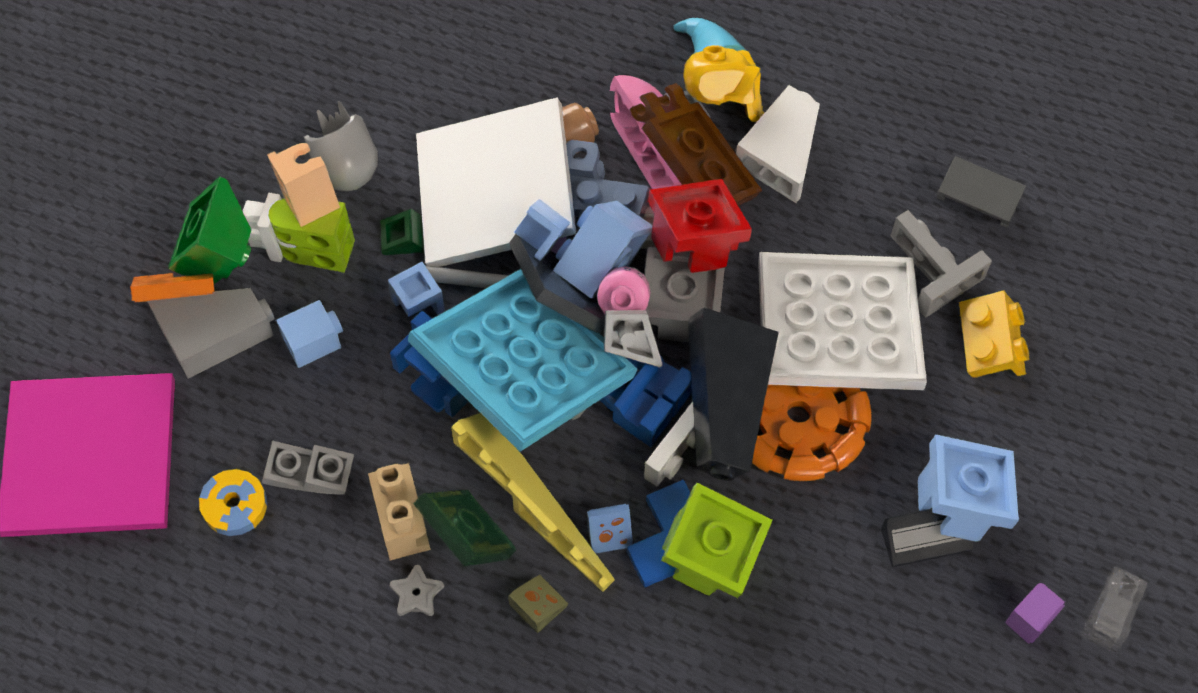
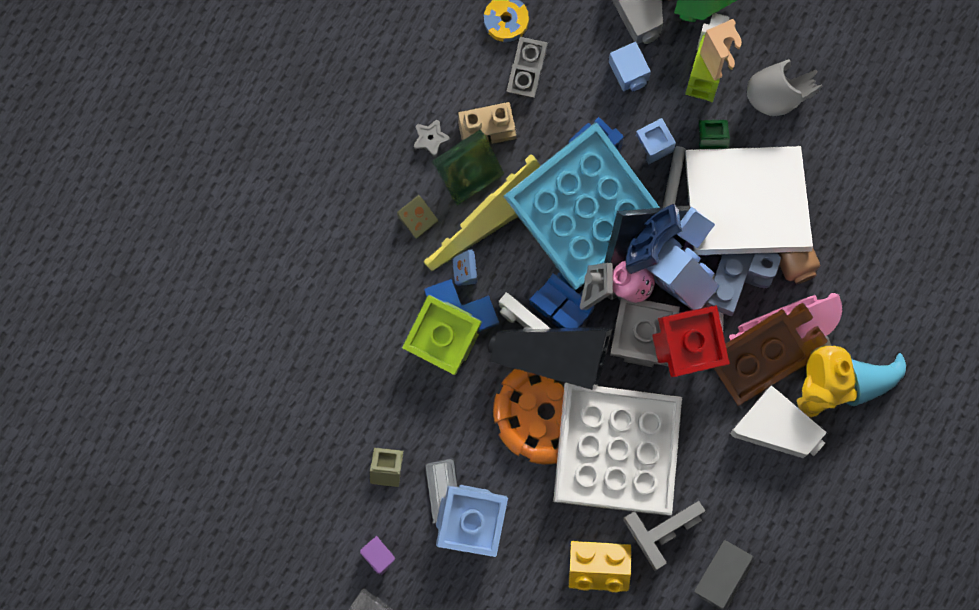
camera: 100 degrees right, 15 degrees up
(569, 262) = (646, 248): none -> dark blue tile
(904, 617) = (386, 467): none -> olive slope

